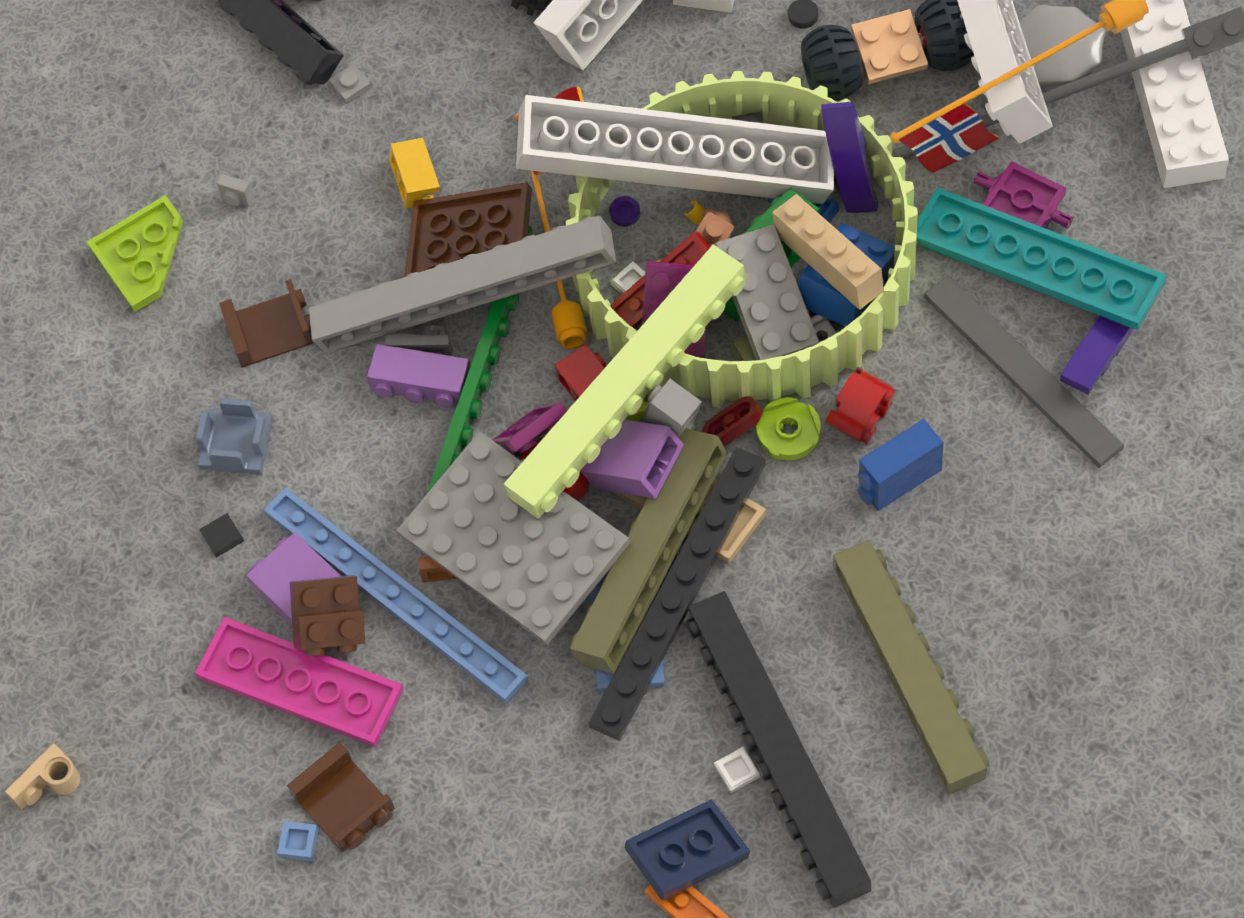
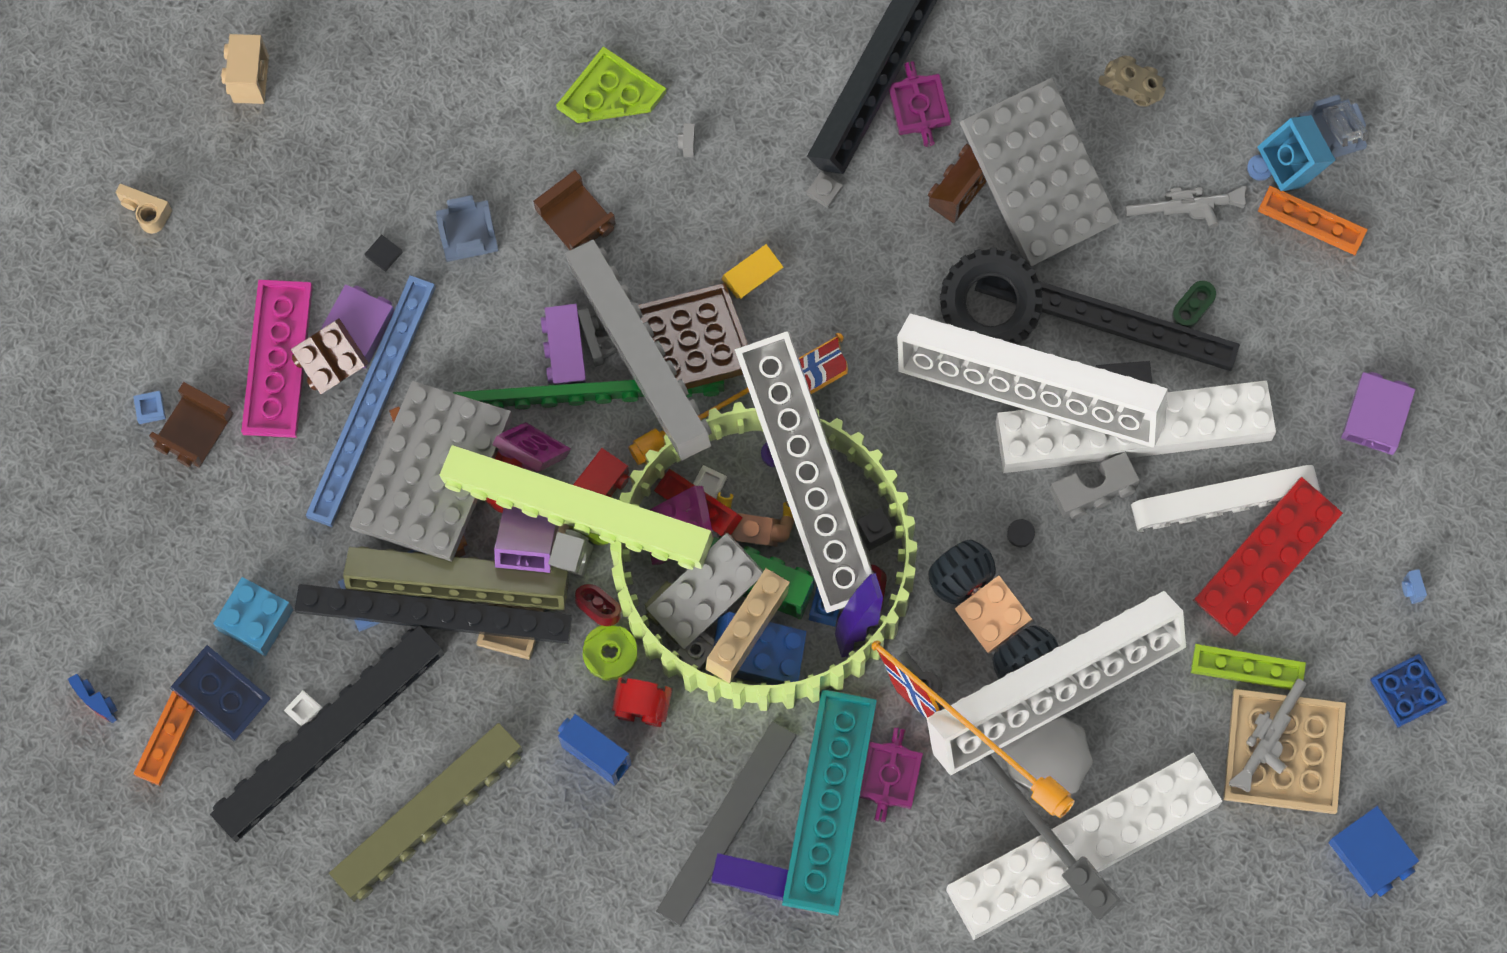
camera: 65 degrees right, 10 degrees up
(606, 788) = (253, 616): none -> dark azure brick

